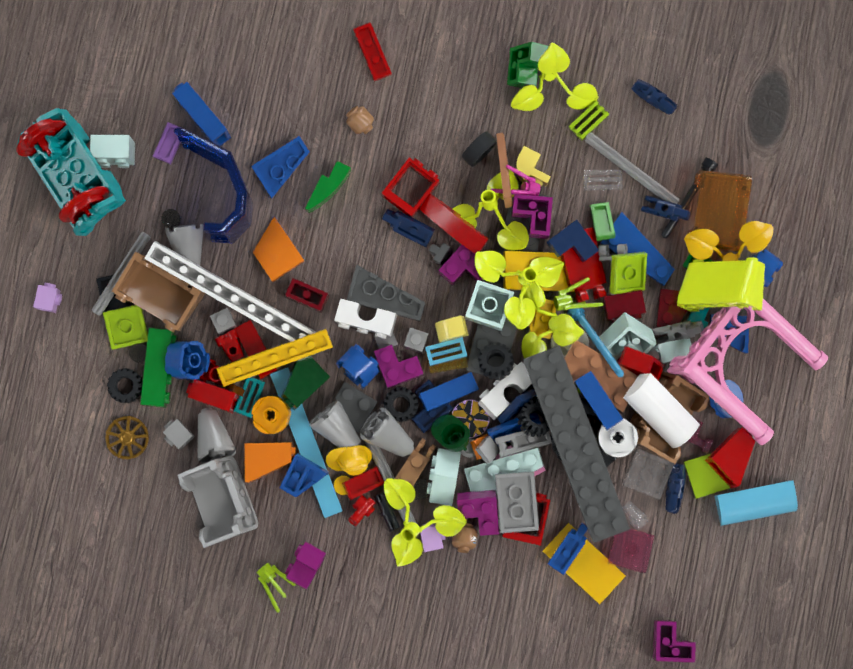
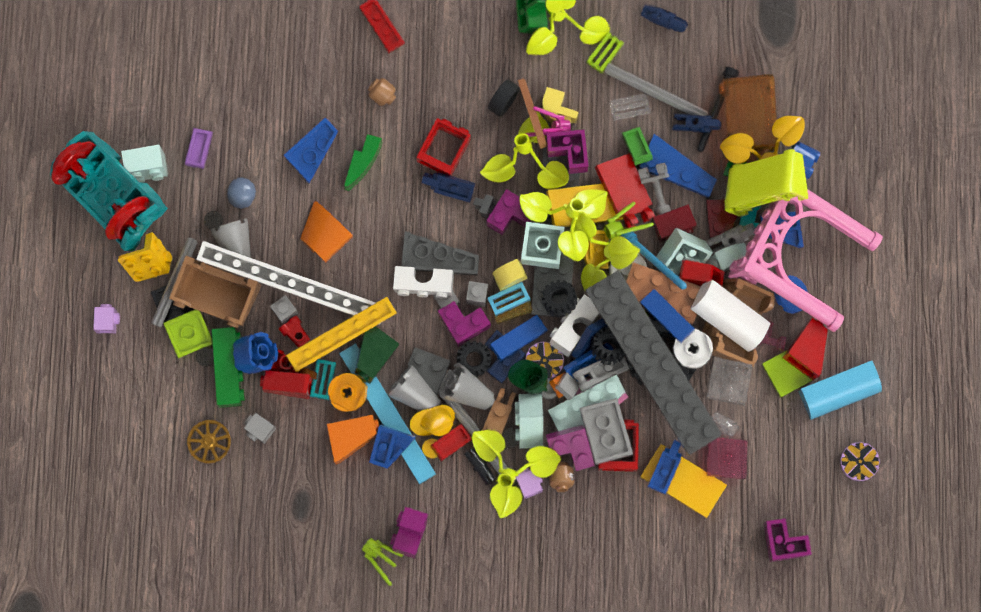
camera: 10 degrees left, 5 degrees down
(98, 250) = (147, 262): none -> yellow bracket
(113, 384) = (194, 379): black tyre -> none
(201, 114) = (226, 114): blue slope -> none
(203, 195) = (241, 193): none -> sand blue hair
(213, 437) = (295, 425): light grey cone -> none
(220, 500) = (312, 484): light grey windscreen -> none
(241, 217) = (258, 152): clear blue windscreen -> none
(252, 342) = (316, 326): red tile -> none
(307, 295) = (361, 269): dark red brick -> none
(358, 366) = (425, 328): blue brick -> none
(364, 508) = (456, 466): red plate -> none
(453, 224) = (492, 173): red slope -> none
(574, 237) = (612, 165): dark blue tile -> none
(628, 272) = (672, 189): lime tile -> none
(675, 488) = (758, 390): dark blue hinge -> none
(761, 577) = (859, 461): none -> tile

